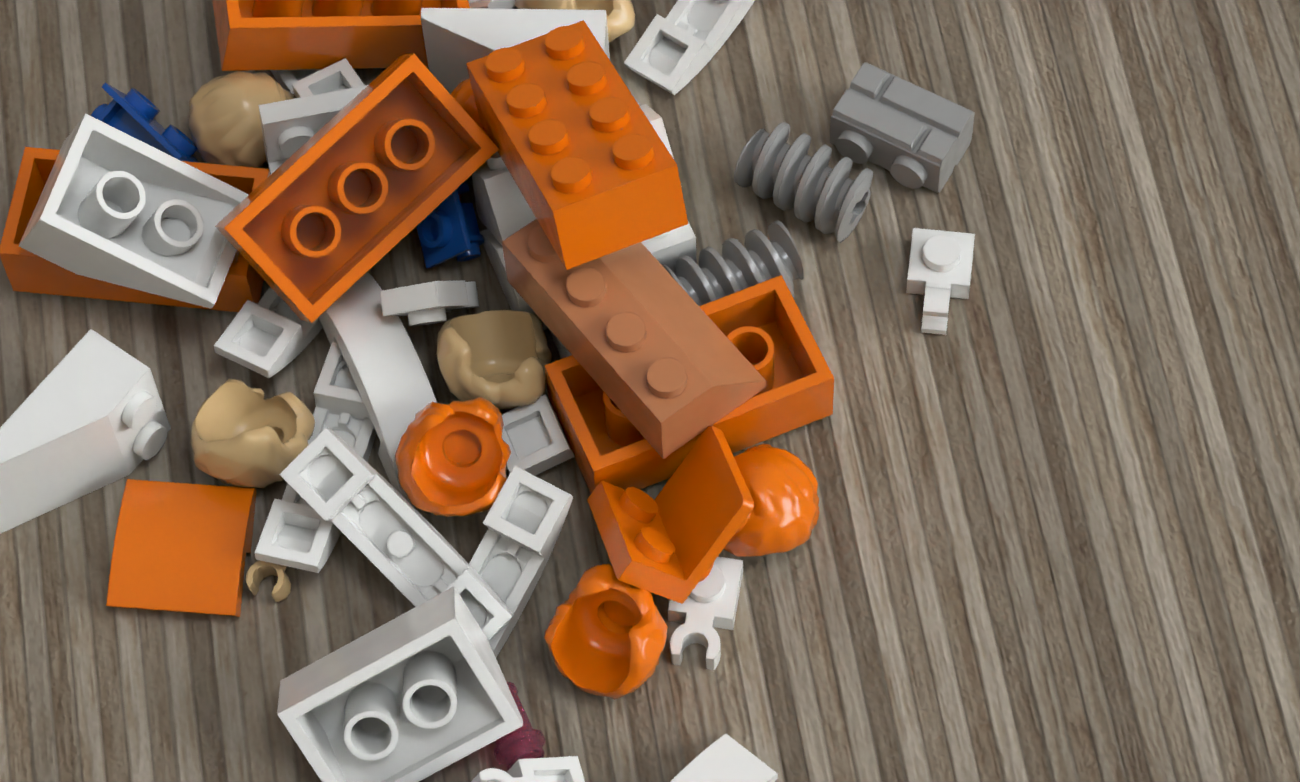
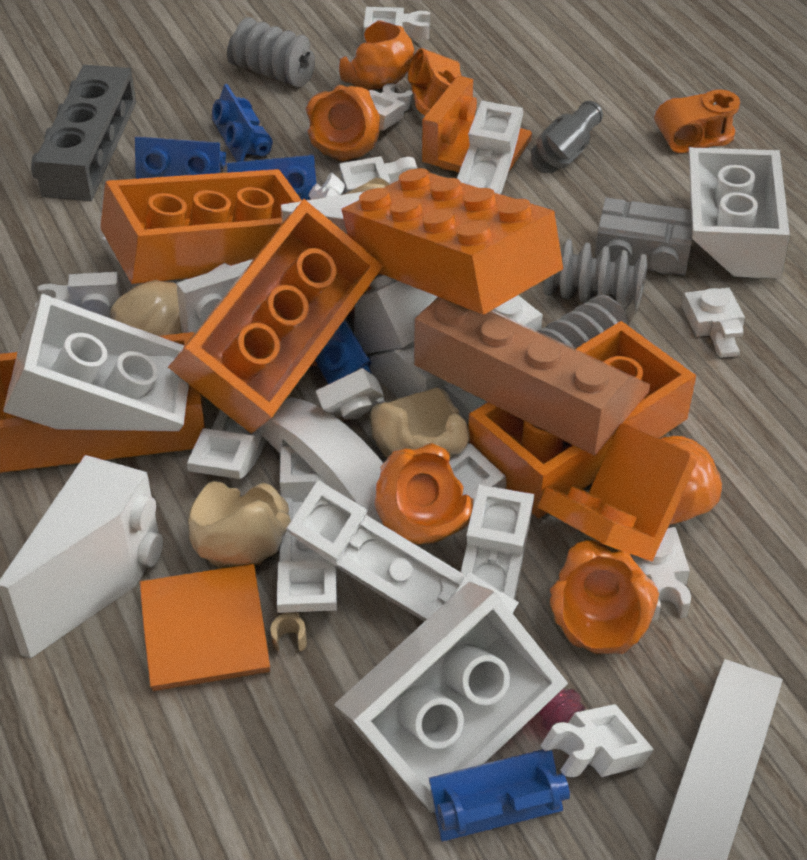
camera: 20 degrees left, 15 degrees down
(174, 62) = (87, 290): none -> white plate
(1031, 117) = (740, 209): none -> white slope

